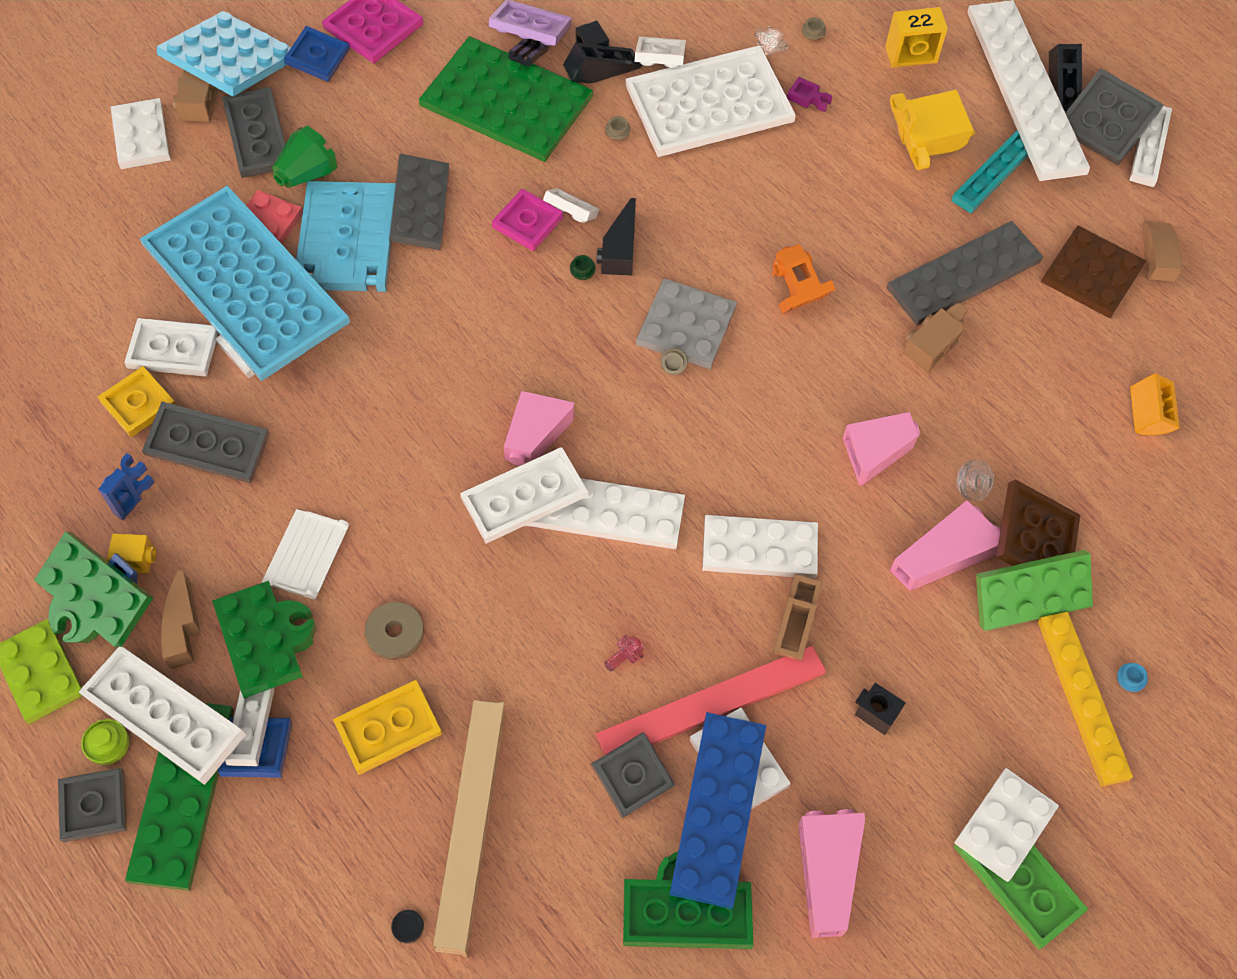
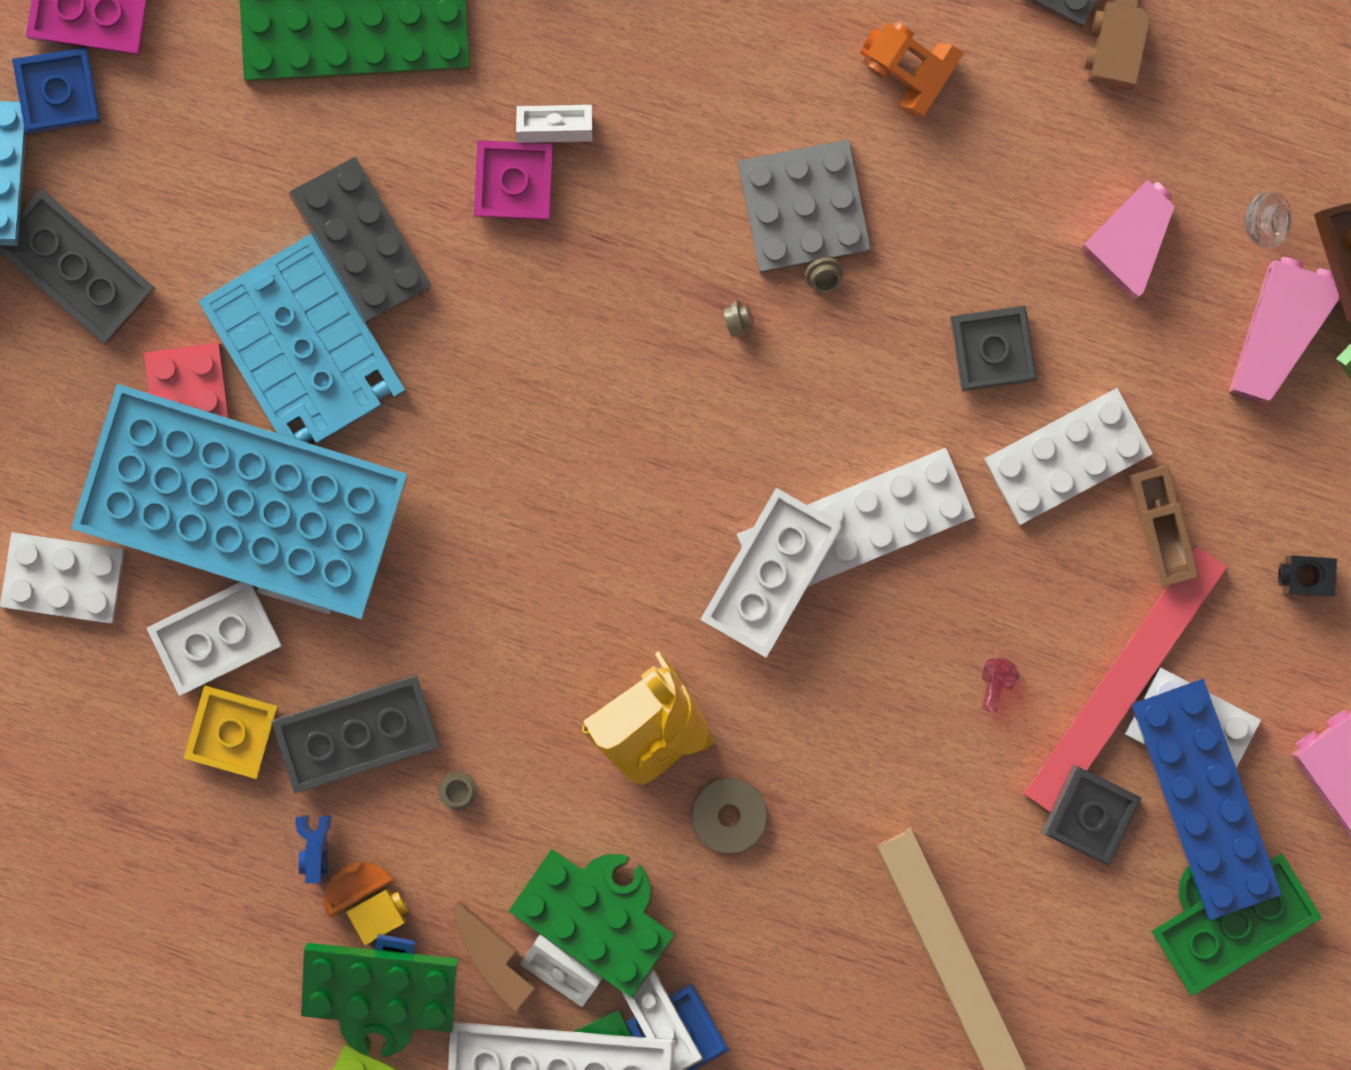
camera: 30 degrees left, 25 degrees up
(117, 273) = (62, 578): none -> white plate
(135, 524) = (353, 884): none -> orange plate
(214, 657) = (561, 970): none -> white plate
(239, 514) = (457, 791): none -> dark tan plate
(303, 158) = (178, 283): green cone -> none
(305, 553) = (564, 788): white piece -> none
(384, 534) = (649, 725): none -> yellow piece
(387, 727) = (800, 927): yellow plate -> none
(536, 426) = (718, 471): bright pink slope -> none
(582, 267) = (627, 207): dark green plate -> none
(605, 356) = (738, 319): none -> dark tan plate
(618, 243) = (655, 151): black slope -> none
(751, 457) = (993, 348): none -> dark grey plate

